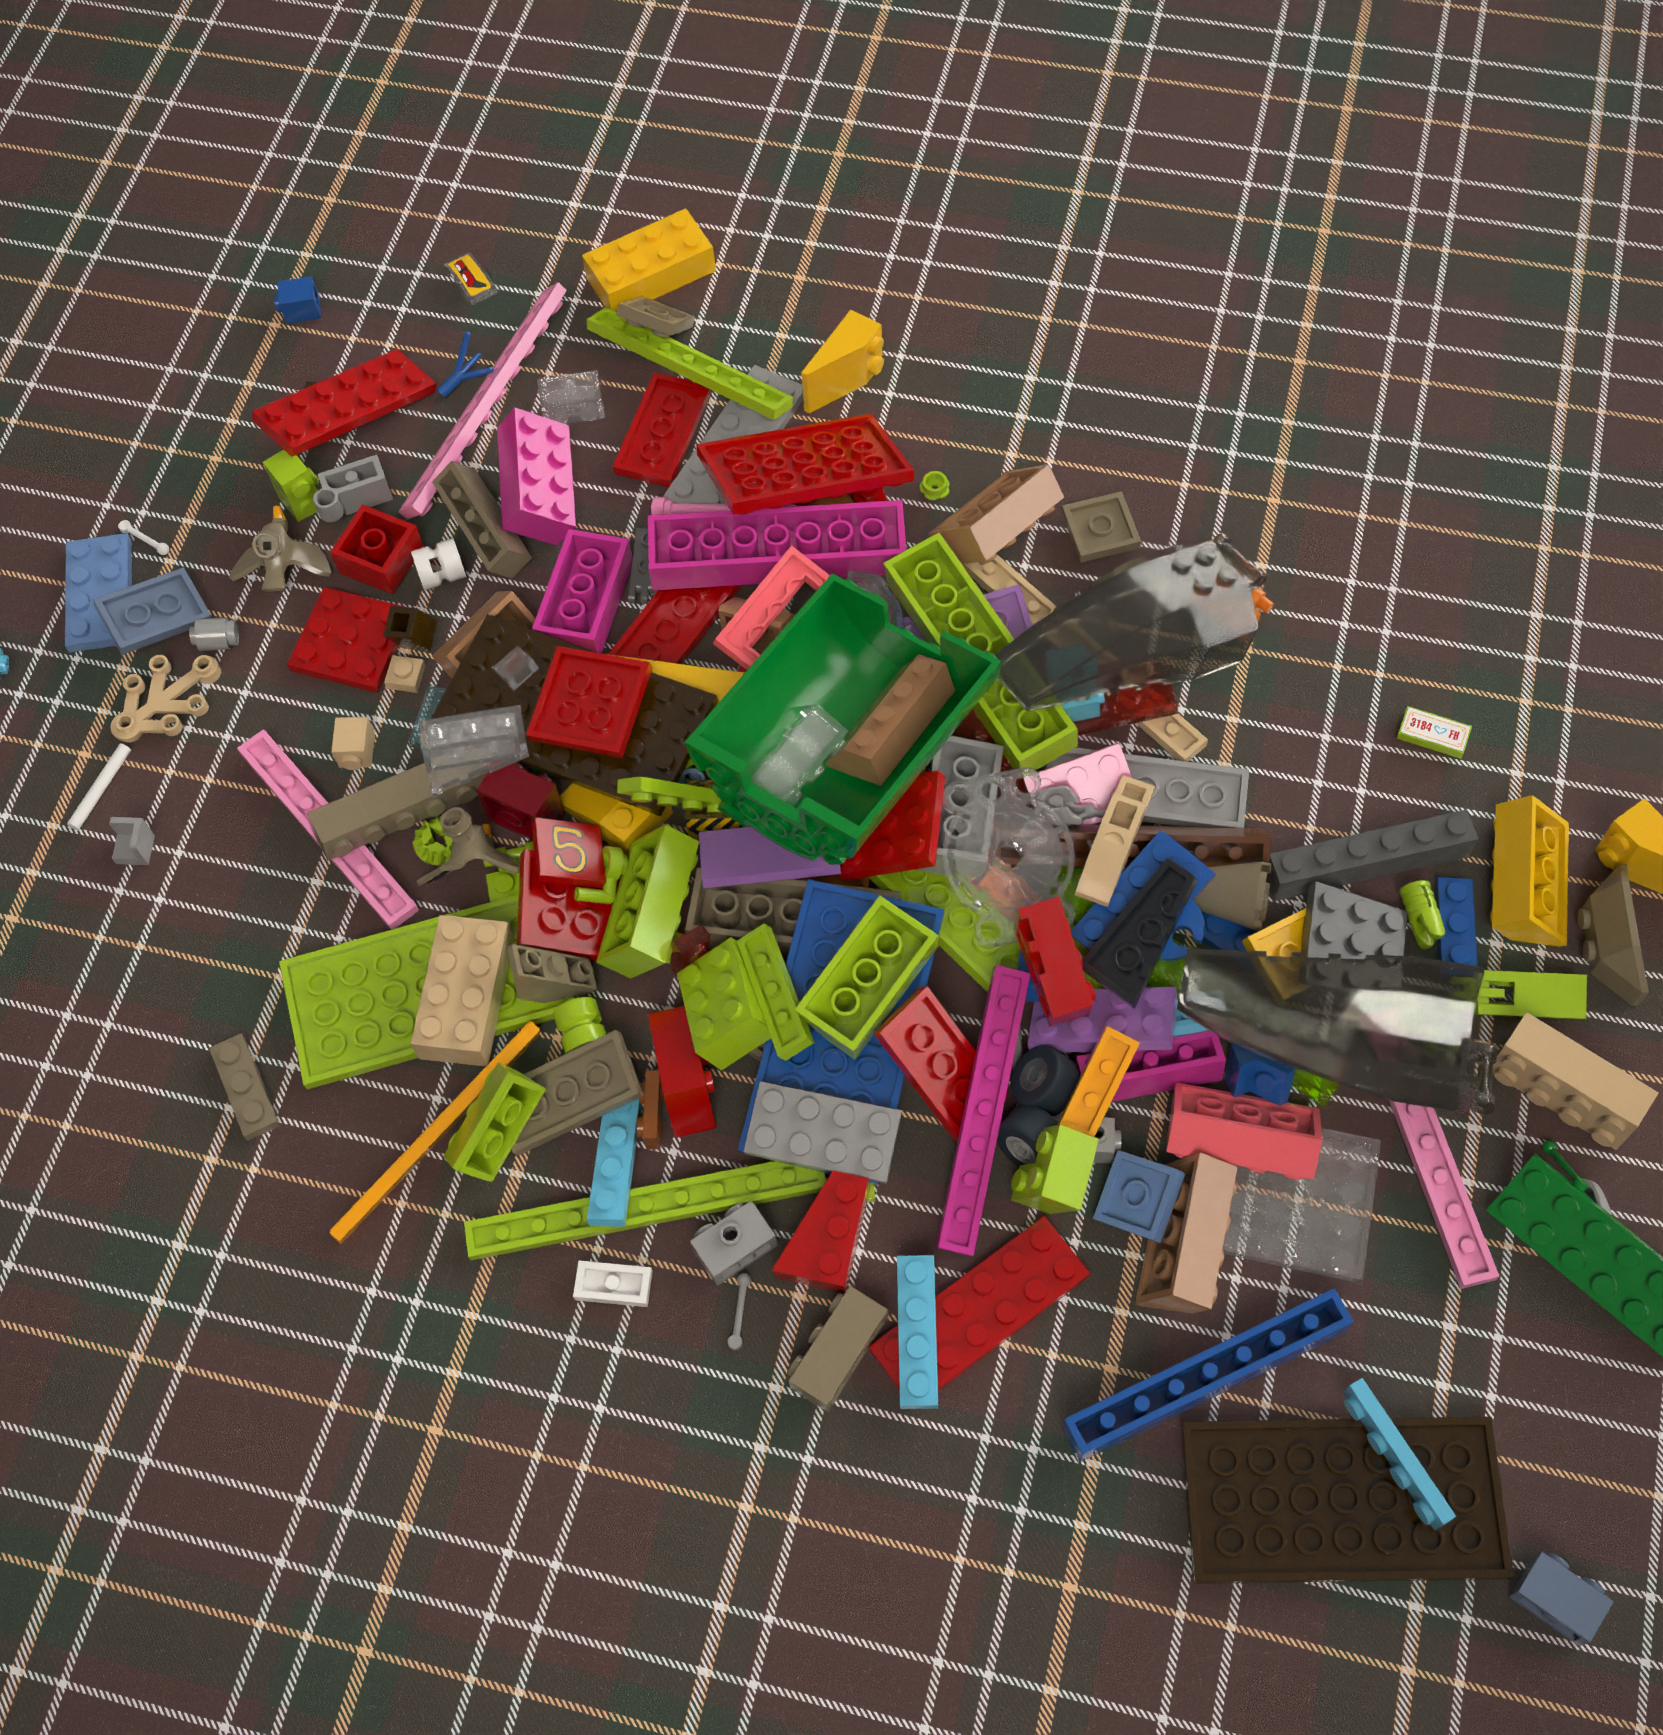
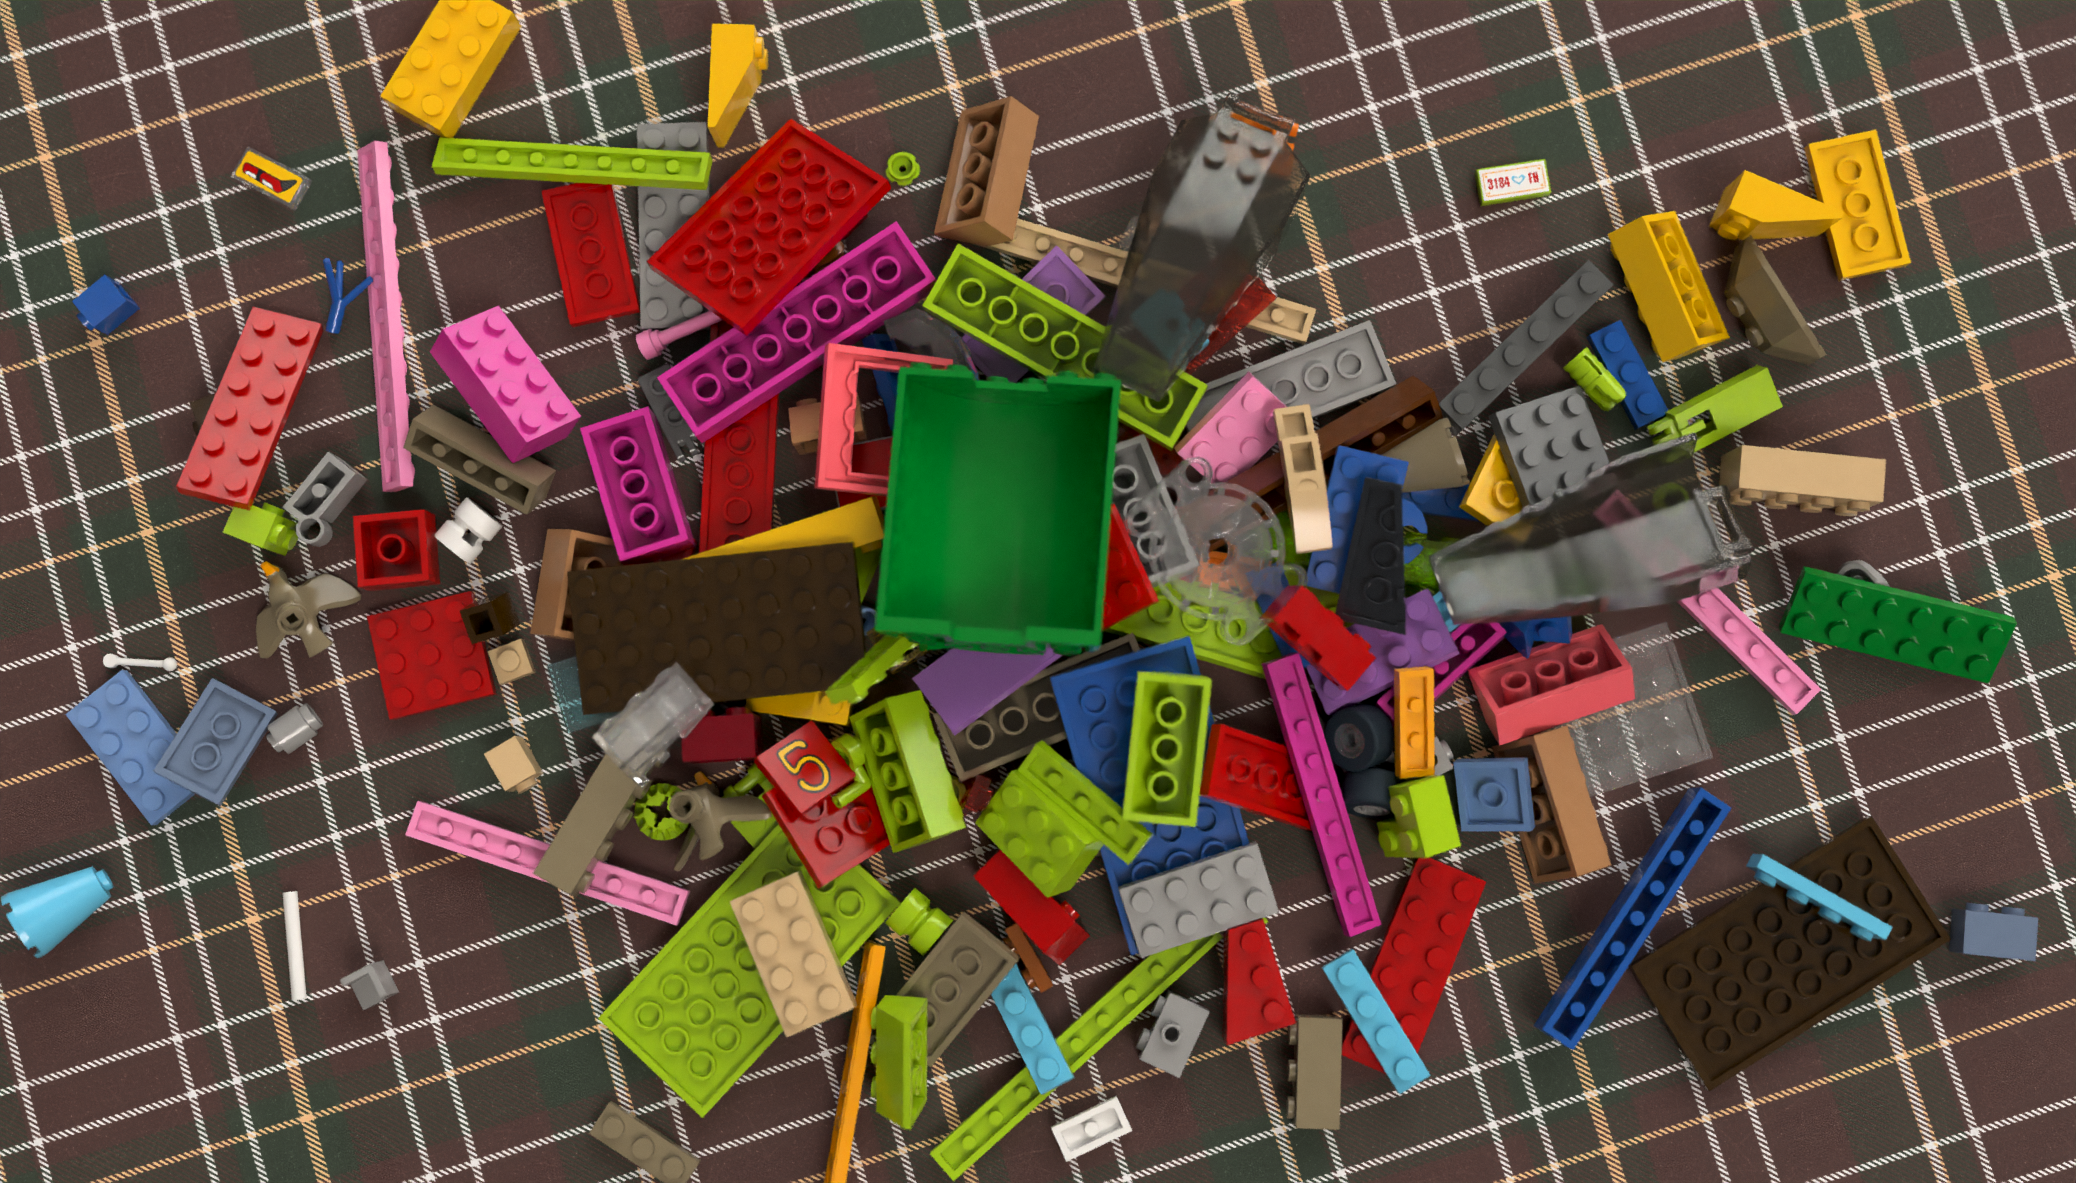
camera: 35 degrees left, 20 degrees up
(162, 700) = (290, 826): tan plant -> none
(515, 667) = (637, 618): clear slope -> none
(549, 975) = (866, 892): dark tan slope -> none
(571, 397) = (475, 268): clear brick -> none
(589, 701) = (736, 617): red plate -> none
(655, 315) = (502, 125): dark tan plate -> none
(735, 1341) = (1222, 1111): light grey hinge -> none
(800, 754) = (972, 564): clear wedge -> none
(894, 720) = (1033, 475): medium nougat slope -> none
(1063, 801) = (1236, 468): light grey piece -> none
(1101, 527) = (1090, 127): dark tan plate -> none
(1550, 1147) = (1851, 572): green hinge -> none

